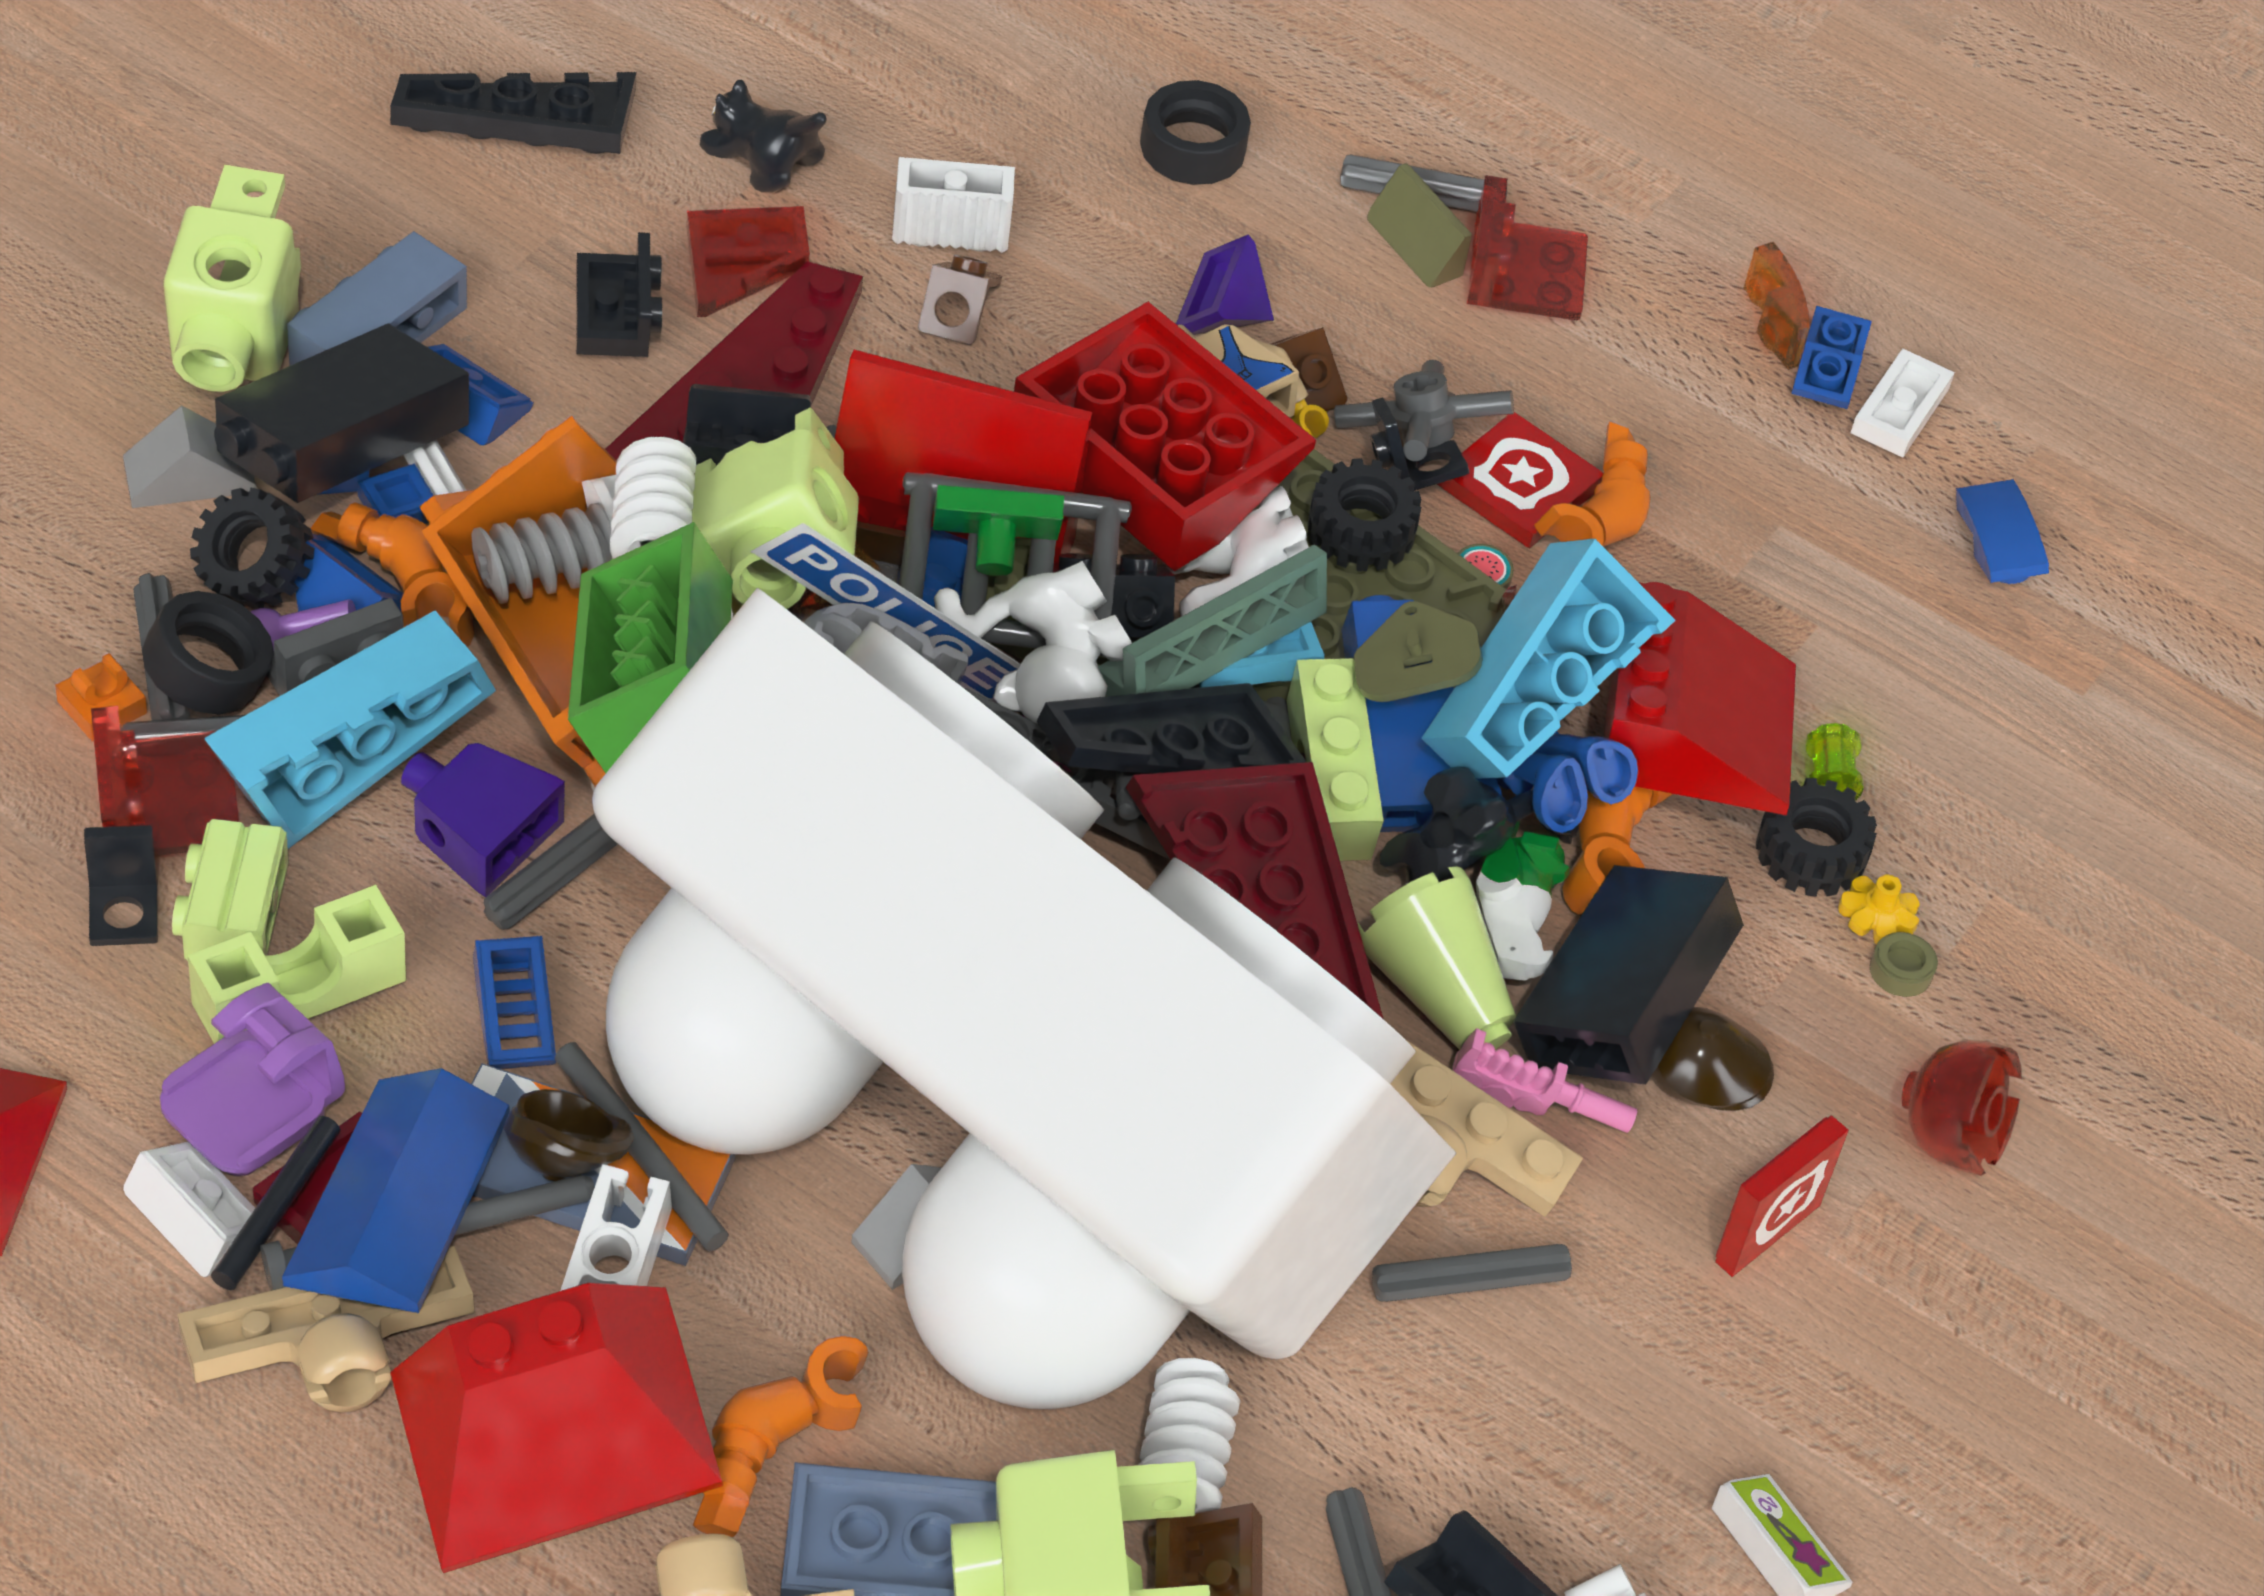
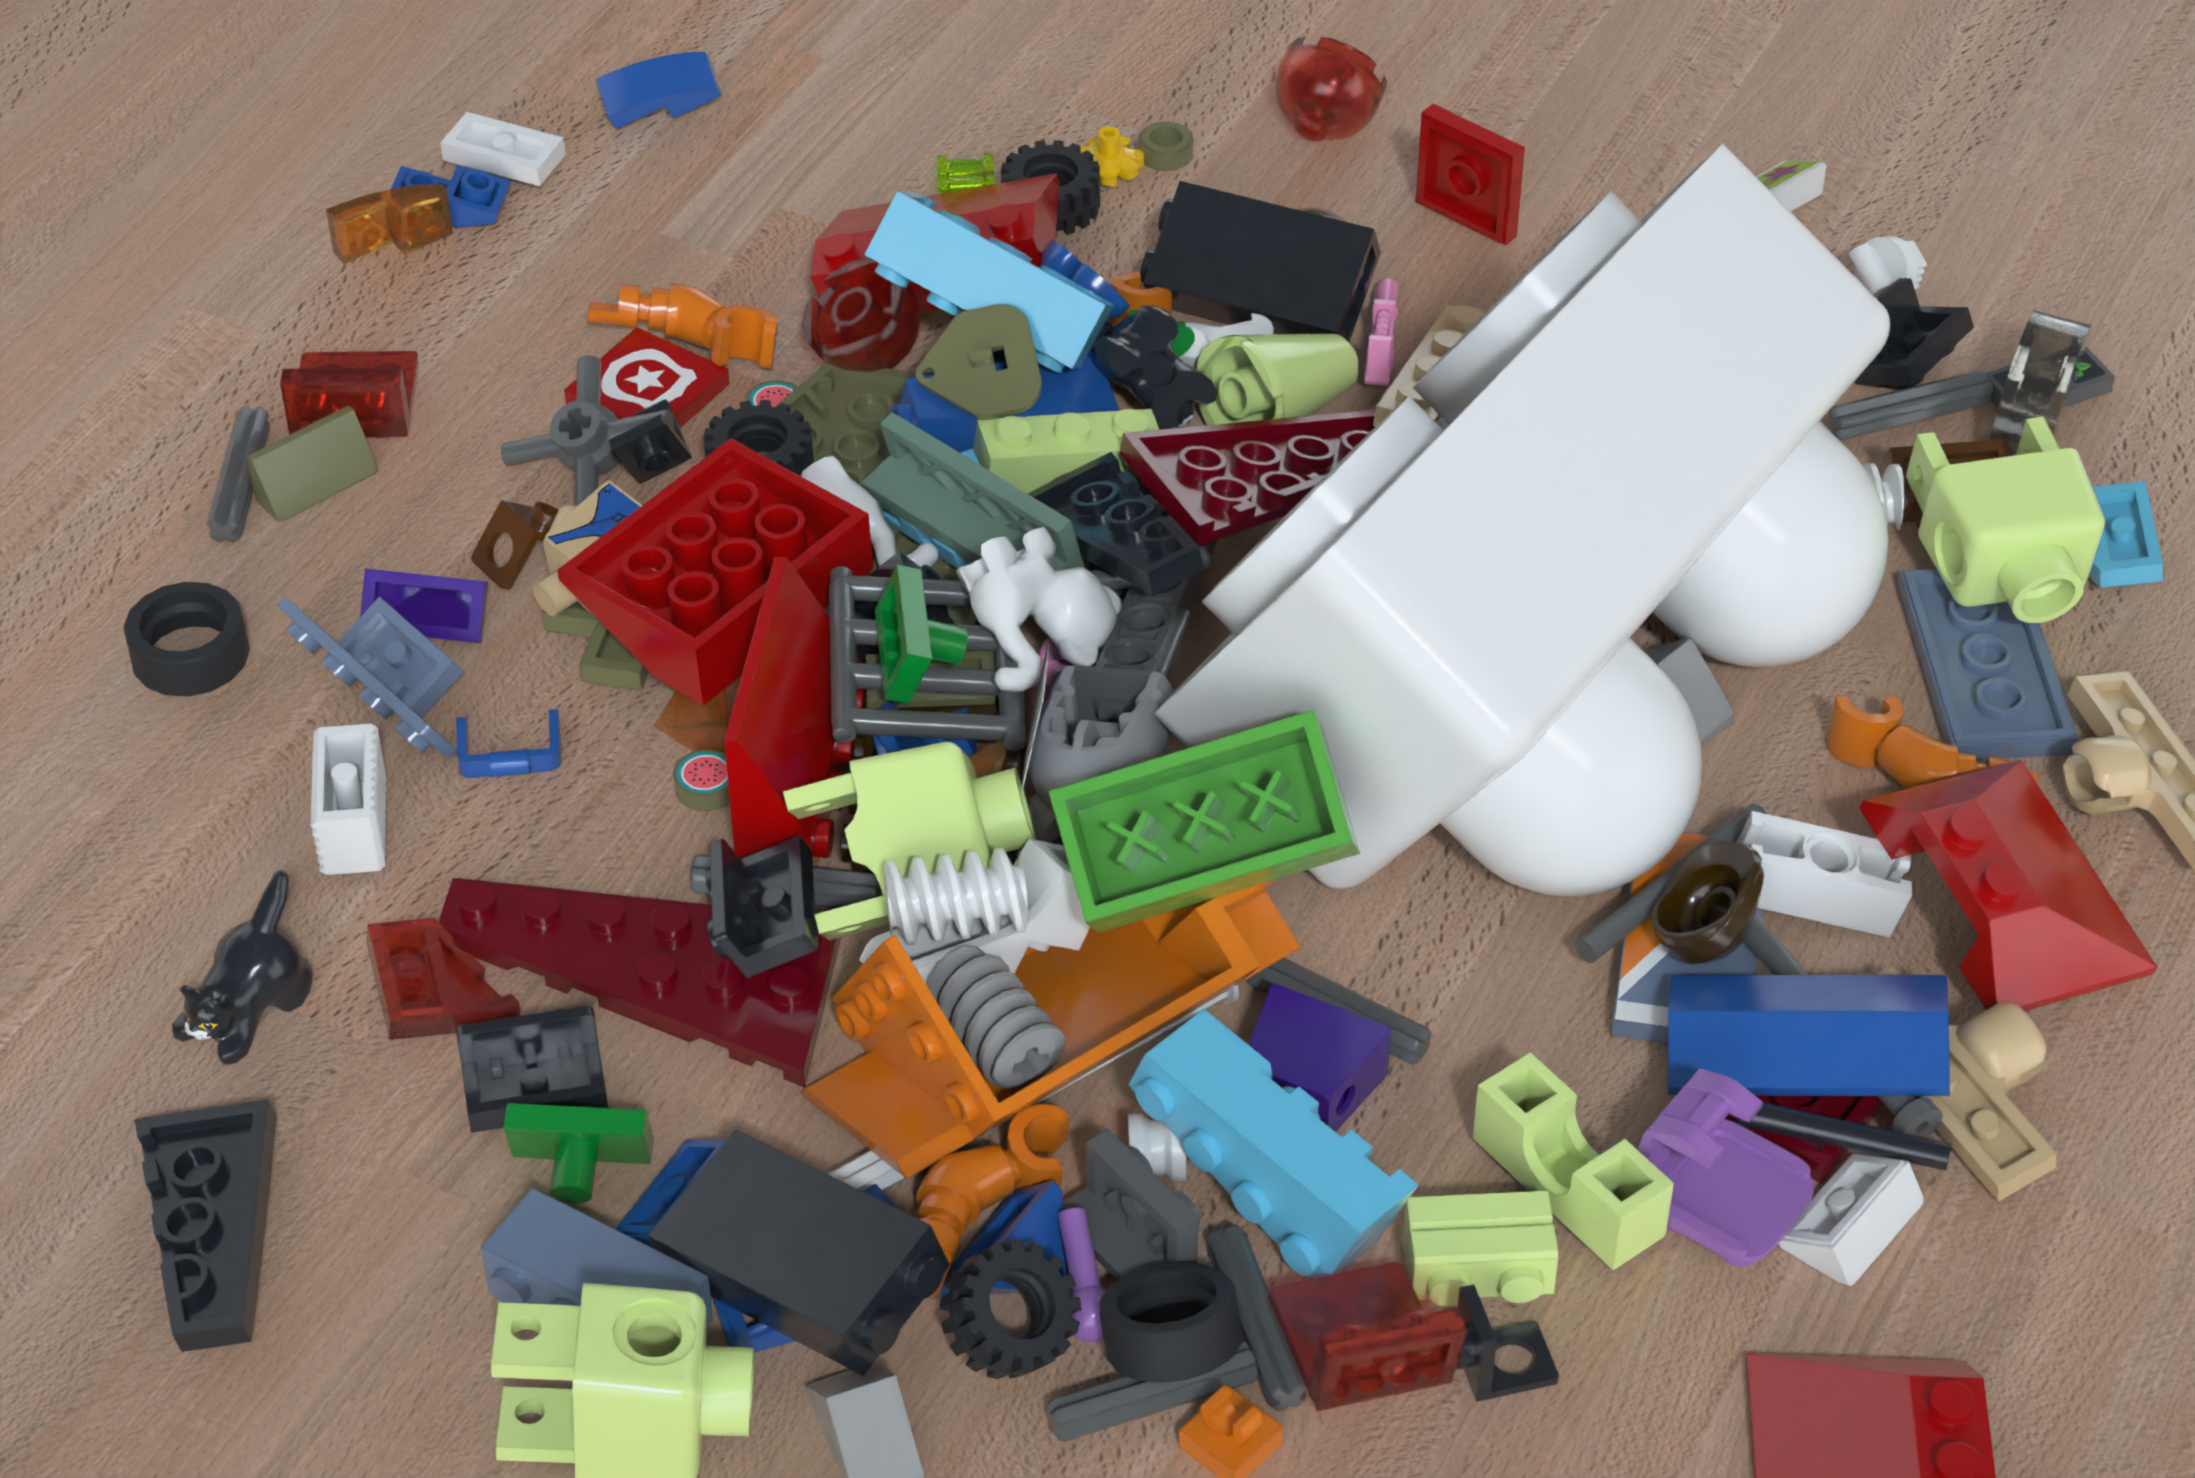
camera: 90 degrees left, 5 degrees down
(512, 956) = (1490, 1035): blue slope -> none
(534, 322) = (577, 1141): none -> green tile
(967, 278) = (463, 785): bracket -> none
(1009, 327) = (511, 761): none -> blue piece
(1128, 246) = (392, 660): none -> sand blue bracket

